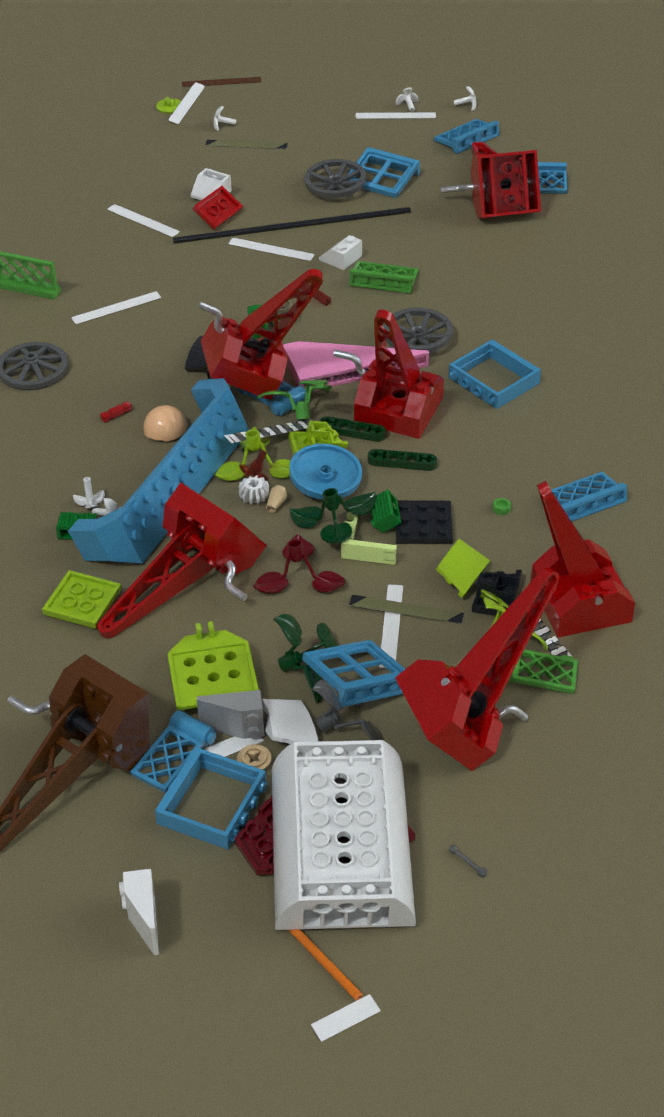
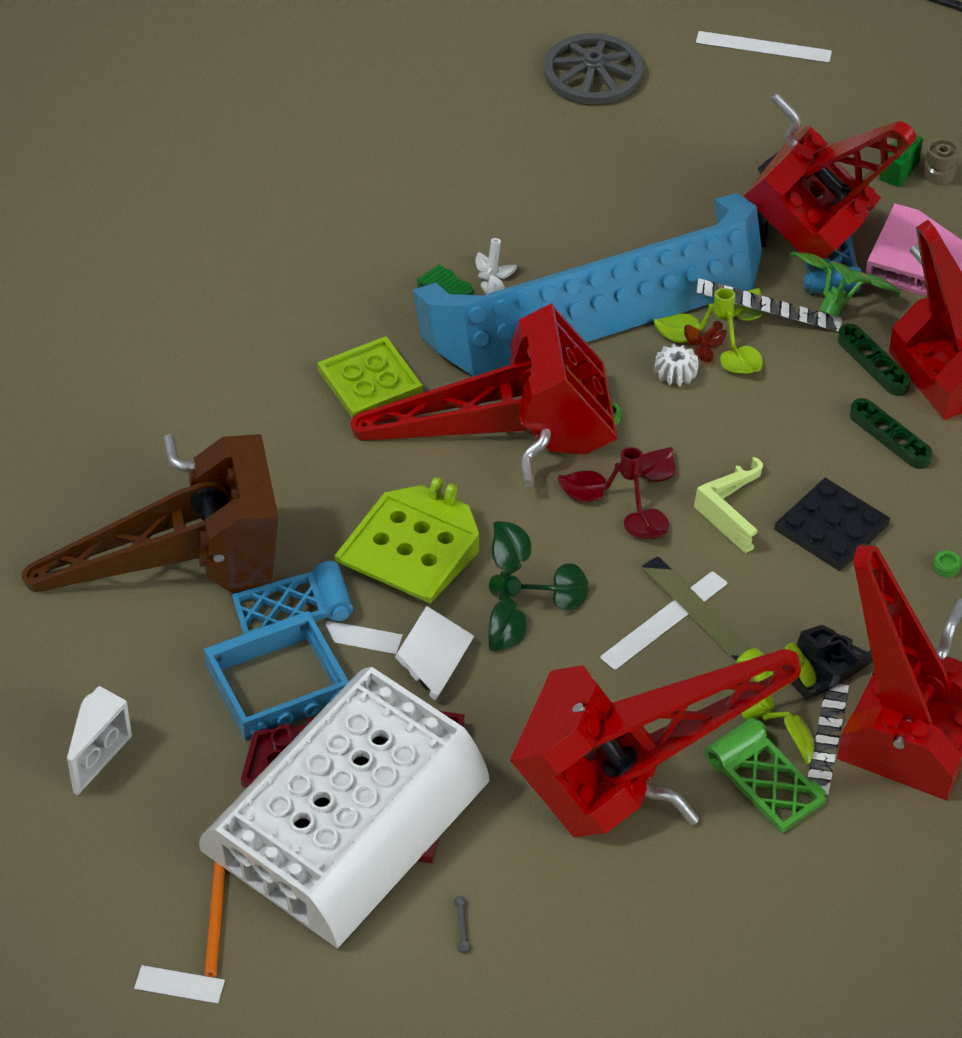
camera: 40 degrees right, 5 degrees up
(115, 411) = (626, 178): red axle -> none
(165, 423) = (662, 221): light nougat cylinder -> none
(233, 713) = (383, 602): light grey slope -> none
(255, 751) = (370, 657): tan gear -> none
(276, 497) = (692, 390): tan cone -> none
(317, 433) = (811, 350): lime slope -> none
(325, 467) = (776, 392): dark azure dish -> none
(332, 717) = (475, 645): dark grey plant -> none
(336, 533) = (705, 433): dark green plant -> none
(361, 690) = (536, 666): dark azure window -> none
(386, 512) = (793, 482): green brick -> none
(462, 566) = (811, 602): lime slope -> none

